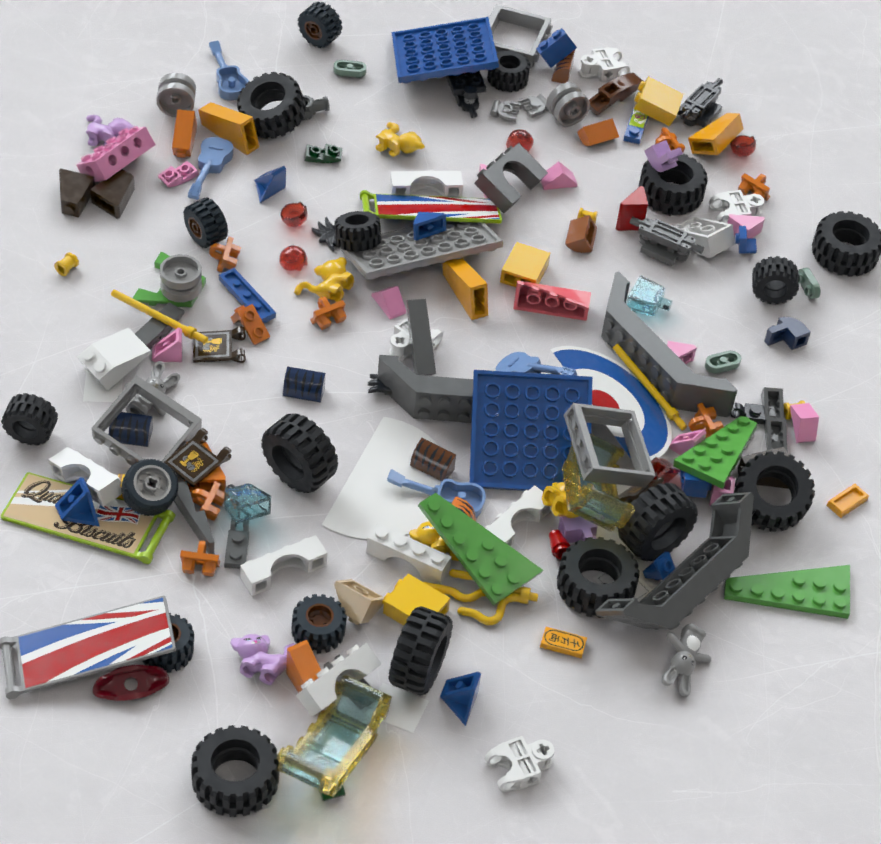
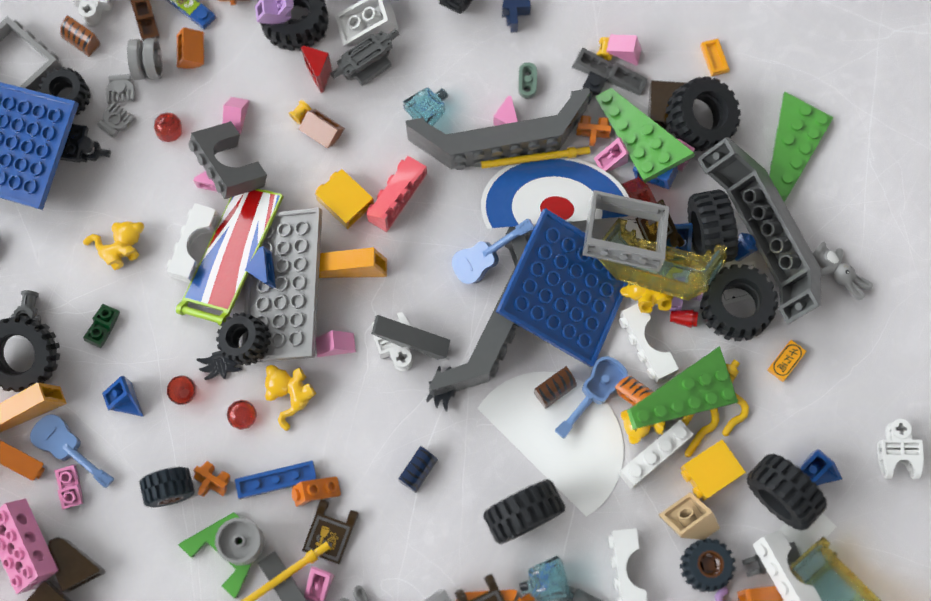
camera: 60 degrees left, 25 degrees up
(326, 311) = (333, 417): orange hips -> none
(556, 47) = (60, 32): blue brick -> none

